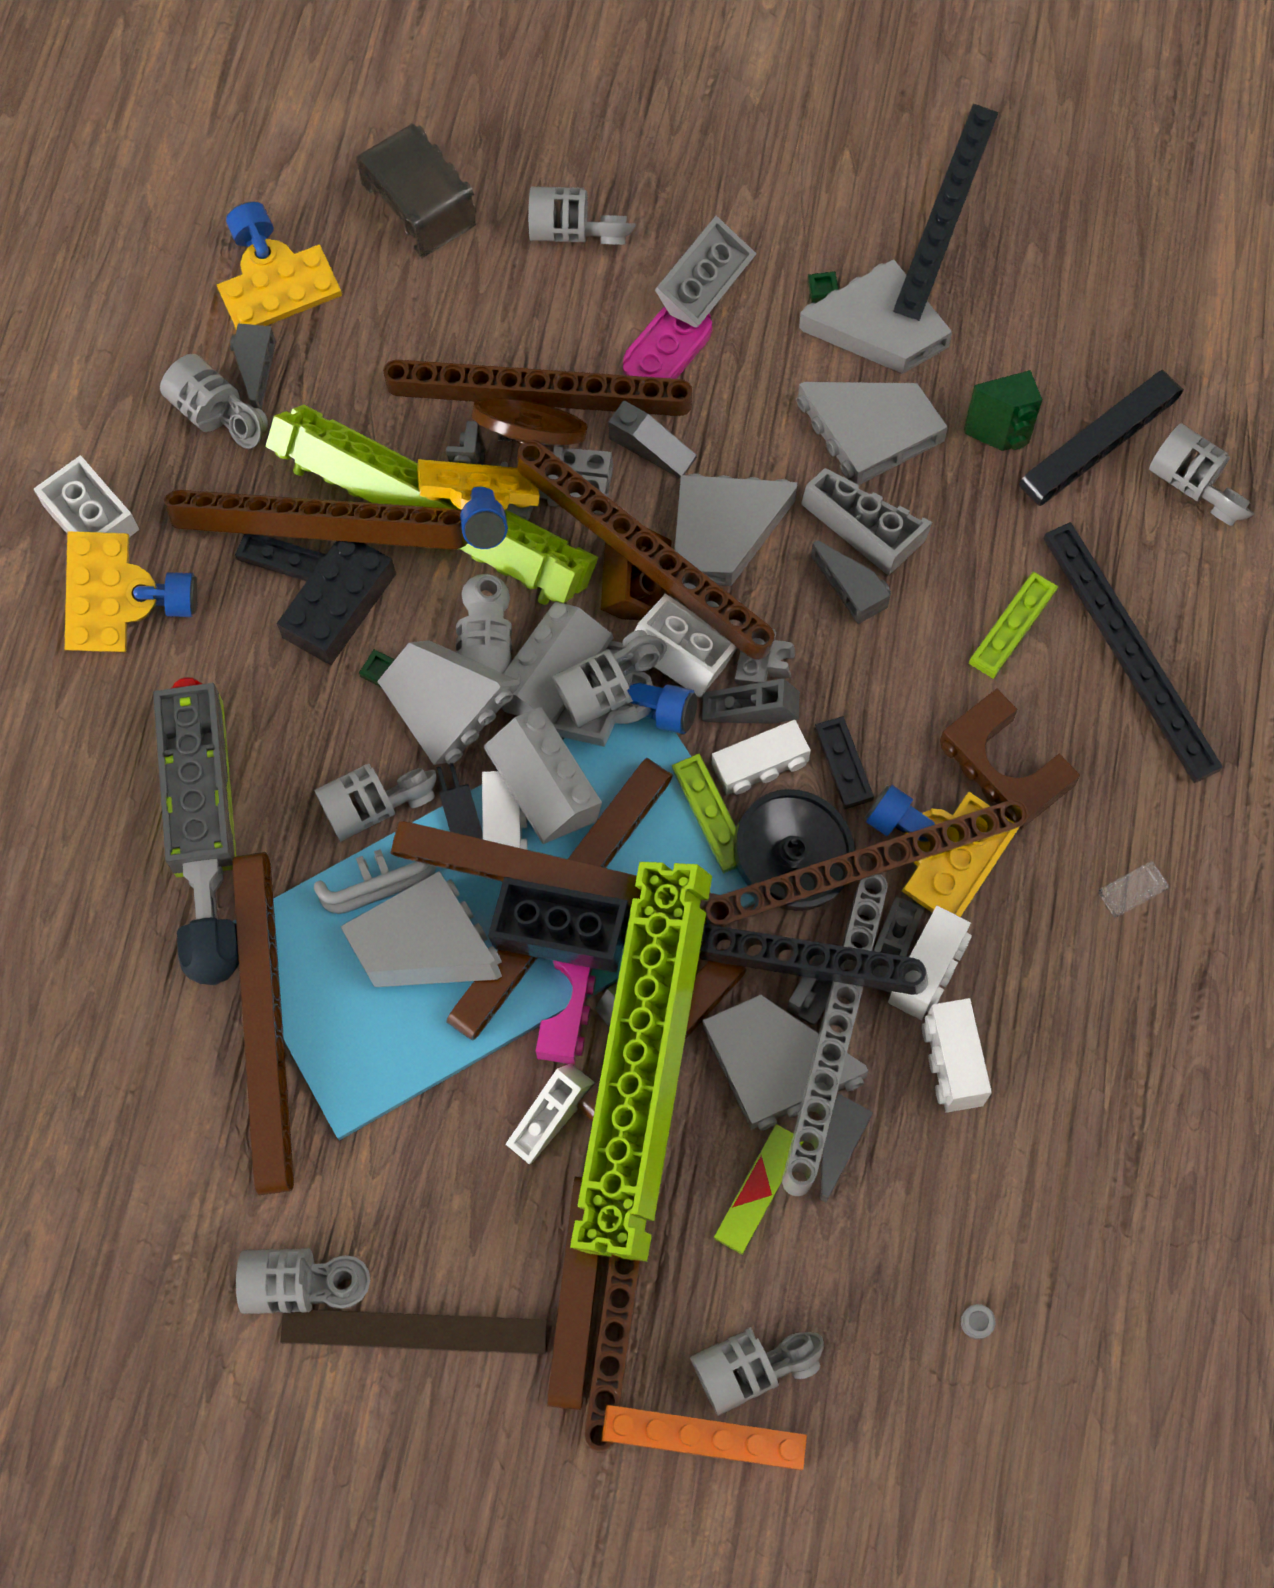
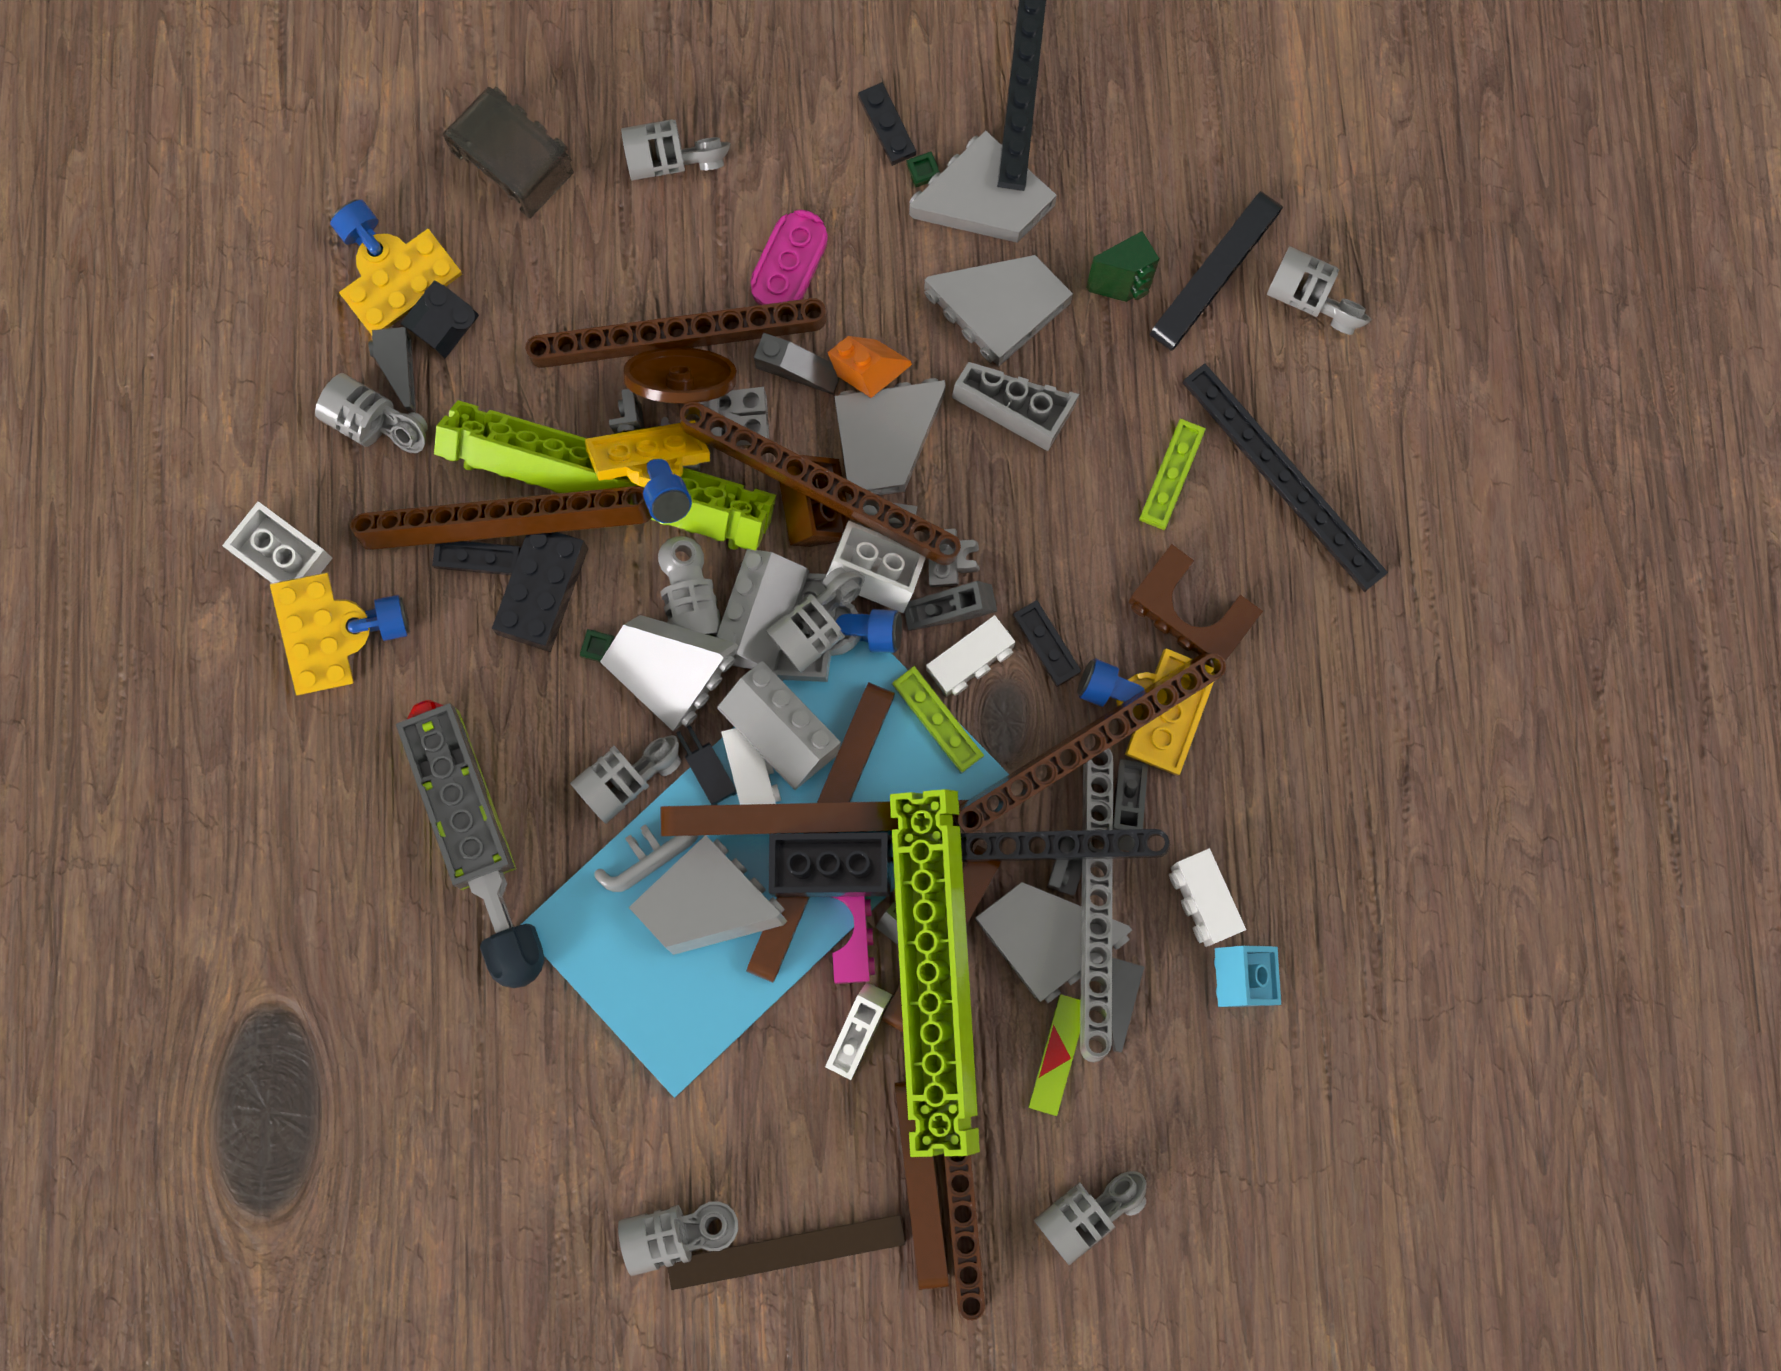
camera: 15 degrees left, 10 degrees up
(262, 1025) = (579, 1009): reddish brown beam -> none
(308, 328) = (440, 318): none -> black slope
(704, 273) = (808, 181): light grey slope -> none
(704, 1437) = (1060, 1286): orange plate -> none
(720, 451) = (867, 364): none -> orange slope
(790, 833) = (1014, 728): black dish -> none
(796, 238) = (887, 123): none -> black plate
(854, 584) = (1018, 467): dark grey slope -> none
(940, 942) = (1168, 812): white brick -> none
(978, 1321) = (1272, 1127): light grey tile -> none
(984, 1150) = (1247, 976): none -> medium azure slope
(1133, 889) = (1330, 704): clear tile -> none

